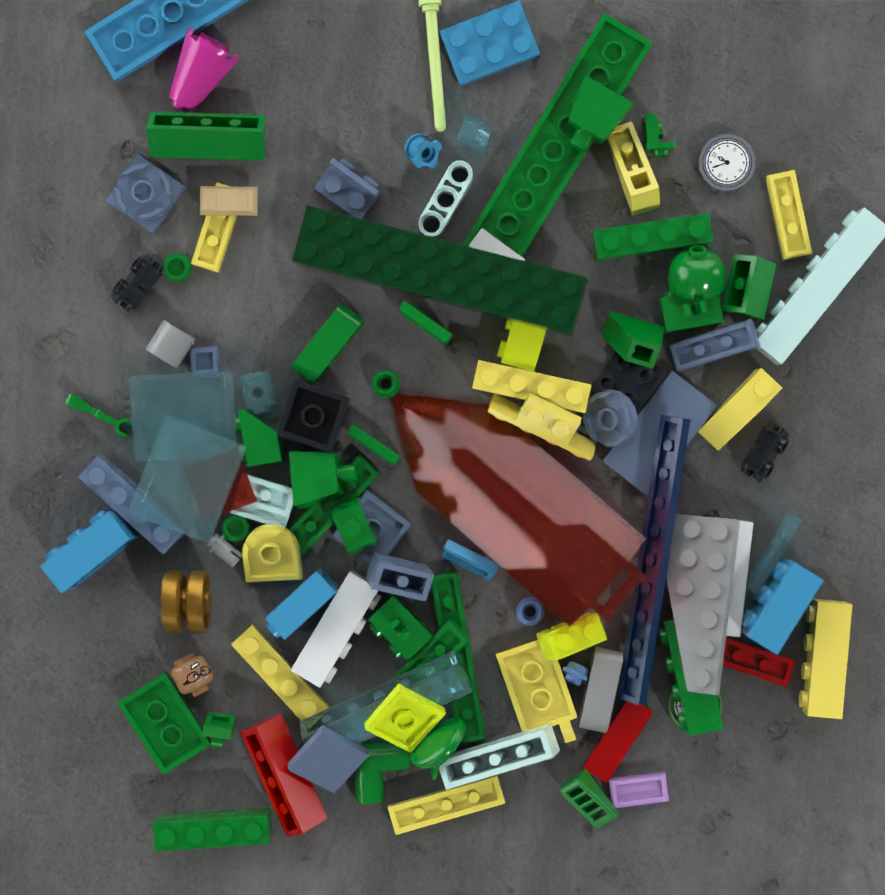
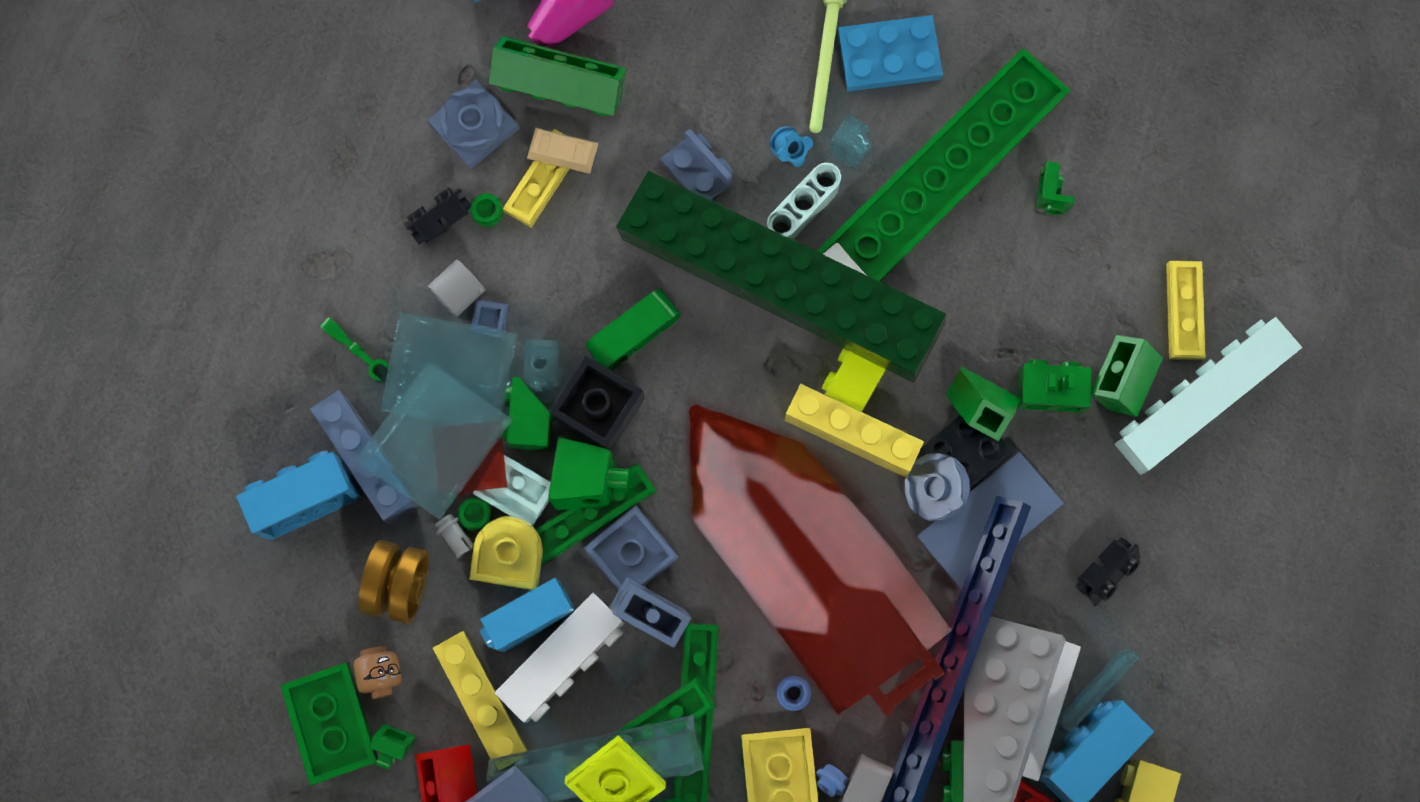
camera: 20 degrees right, 10 degrees down
(354, 526) = (612, 542): green torso -> none
(373, 444) = (657, 454): green tile -> none
(385, 375) = (687, 381): green plate -> none
(400, 627) = (635, 673): green brick -> none
(425, 323) = (749, 330): green tile -> none
(469, 560) = (736, 613): dark azure tile -> none
(546, 421) = (863, 472): light yellow bracket -> none
(565, 640) = (836, 732): neon yellow brick -> none
(596, 113) = (993, 147): green torso -> none
(634, 169) = (1021, 220): light yellow slope -> none
(651, 237) = (1026, 297): green brick -> none
(696, 273) = (1071, 343): green cylinder -> none
(714, 345) = (1074, 432): sand blue tile -> none
(726, 163) = (1126, 237): tile -> none
(739, 408) = (1089, 512): light yellow slope -> none

